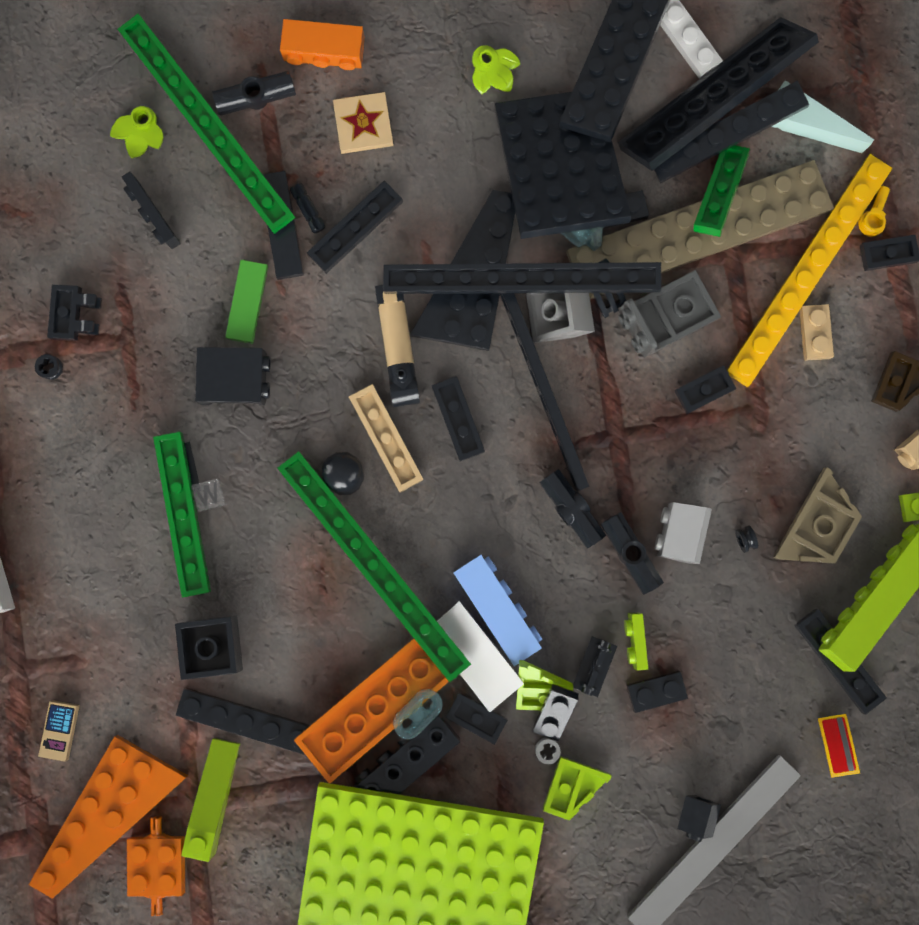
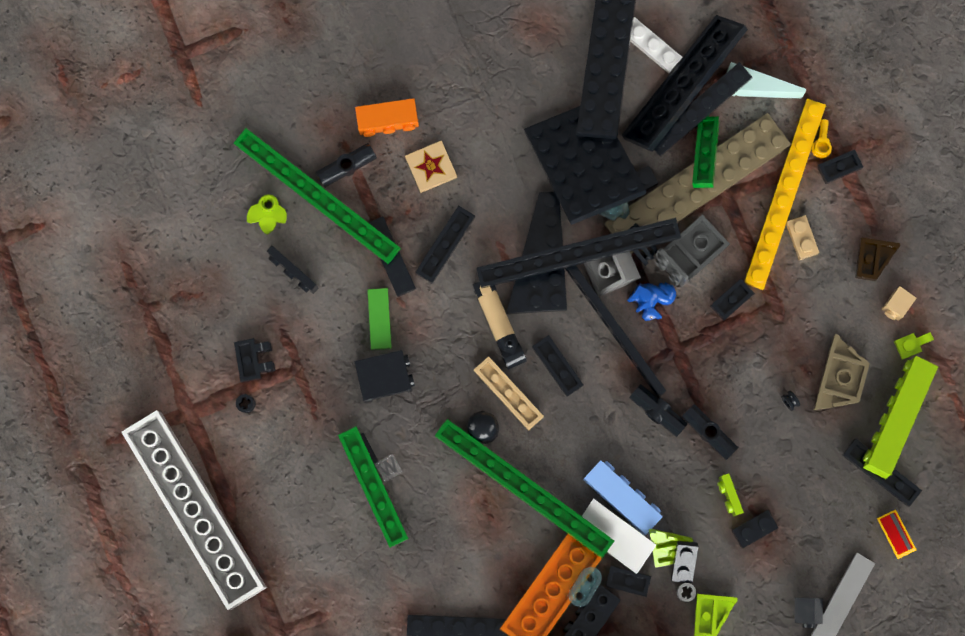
camera: 10 degrees left, 5 degrees down
(208, 647) = (419, 577): black brick -> none
(307, 208) = (406, 239): black axle -> none
(496, 72) = (518, 106): lime plate -> none
(594, 666) = (704, 521): black hinge -> none
(599, 357) = (648, 295): none -> blue animal
(683, 532) = (742, 407): light grey slope -> none

